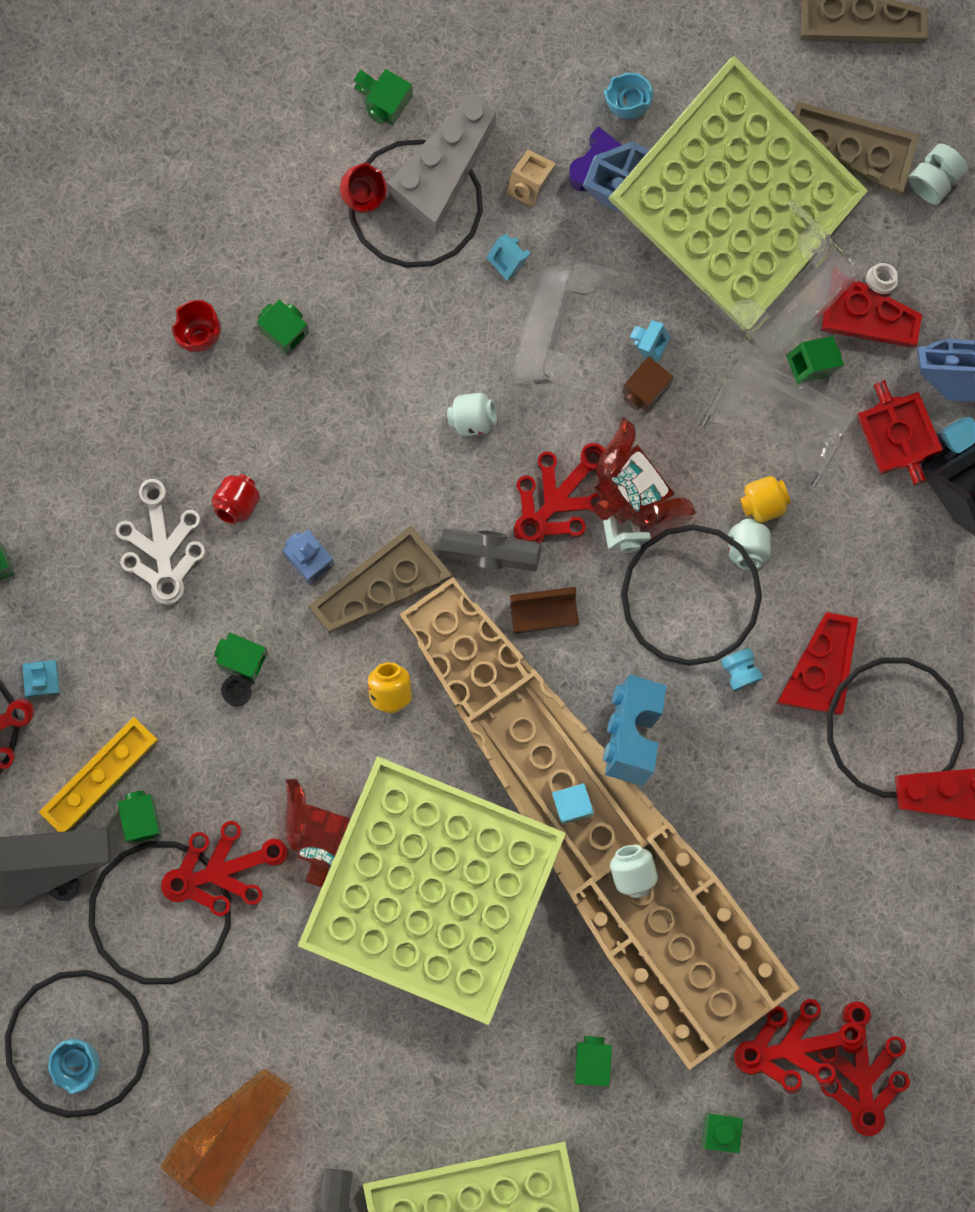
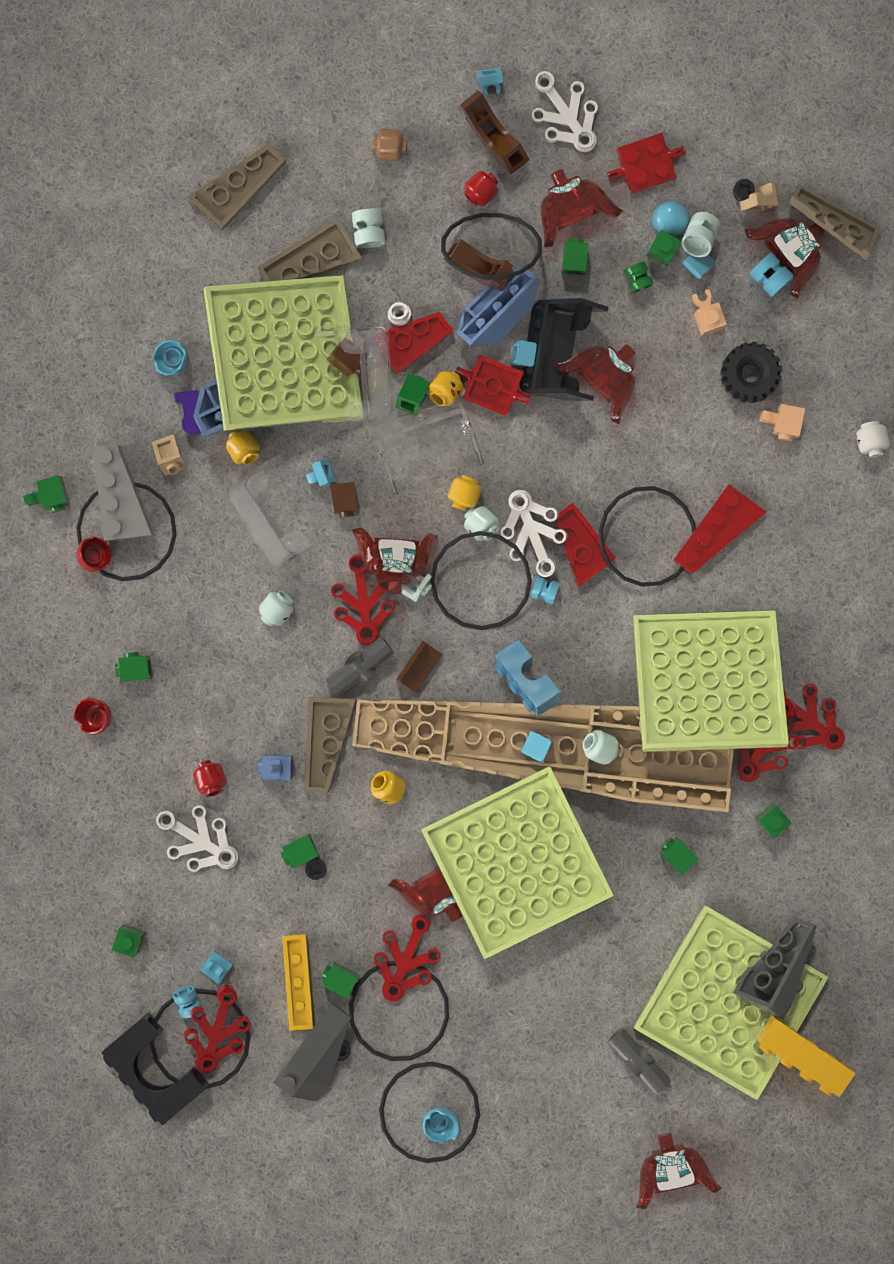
camera: 50 degrees left, 10 degrees up
(217, 1145) = (547, 1084): clear orange wedge -> none
(507, 256) = (203, 509): medium azure tile -> none
(605, 241) = (243, 447): none -> yellow head
(786, 260) = (345, 362): none -> reddish brown brick
(790, 600) = (532, 529): none -> white plant
(808, 925) = (709, 681): none -> yellowish green plate
(852, 387) = (445, 388): none -> yellow head

